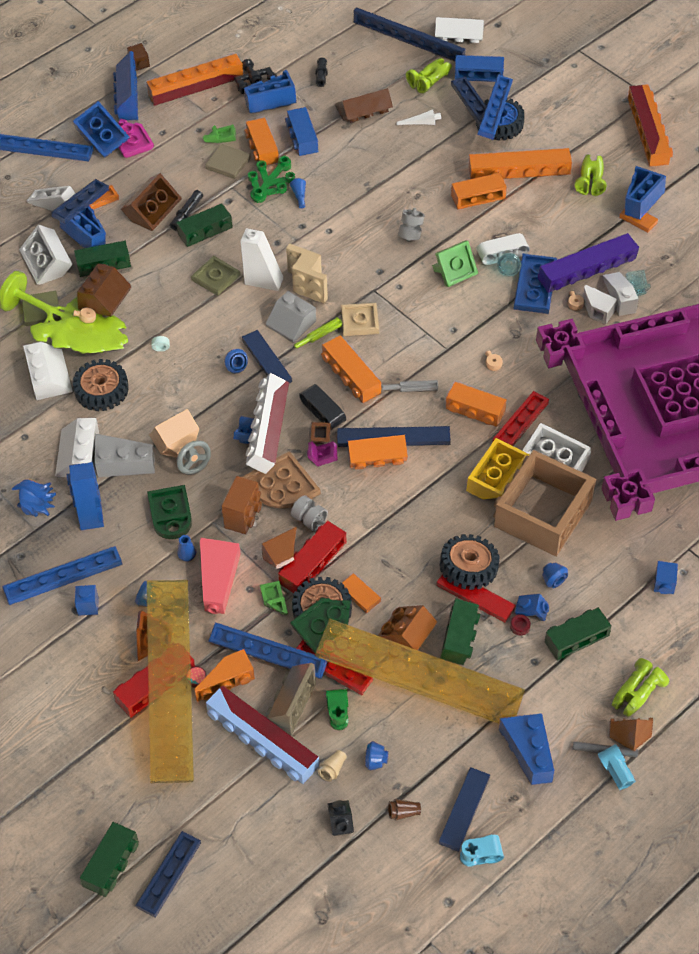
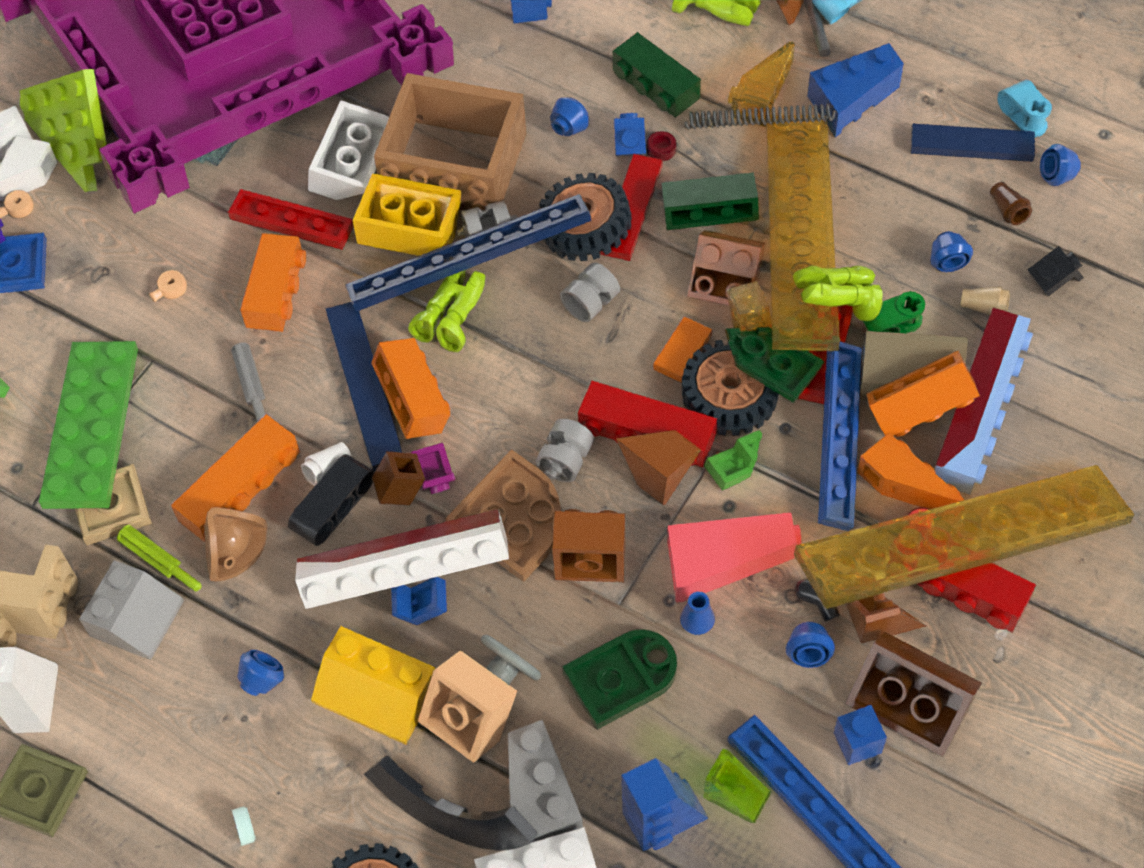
camera: 105 degrees left, 5 degrees up
(86, 538) = (735, 788): none -> clear neon green slope
(100, 635) = (913, 693): none -> reddish brown slope
(118, 421) = (489, 830): none -> black tile
(213, 405) = (372, 684): none -> yellow slope
(265, 356) = (236, 628): dark blue tile -> none
(267, 690) = (923, 395): none -> orange brick
(312, 359) = (232, 542): none -> medium nougat hat
(345, 657) = (841, 287): none -> lime piece
(347, 406) = (319, 463): none -> white cone
(365, 620) = (748, 307): none -> clear yellow head
(410, 314) = (89, 425): none -> bright green plate
(413, 551) = (588, 294): none -> light grey wheel
(422, 850) = (1059, 165): none -> blue cone
(437, 492) = (448, 331): none -> lime piece
(458, 496) = (468, 252): none -> dark blue tile
(480, 512) = (476, 220): none -> light grey wheel
(517, 685) = (761, 116): none -> dark grey piece
(547, 691) = (762, 83): none -> clear yellow slope
(621, 316) = (70, 119): none -> lime wing

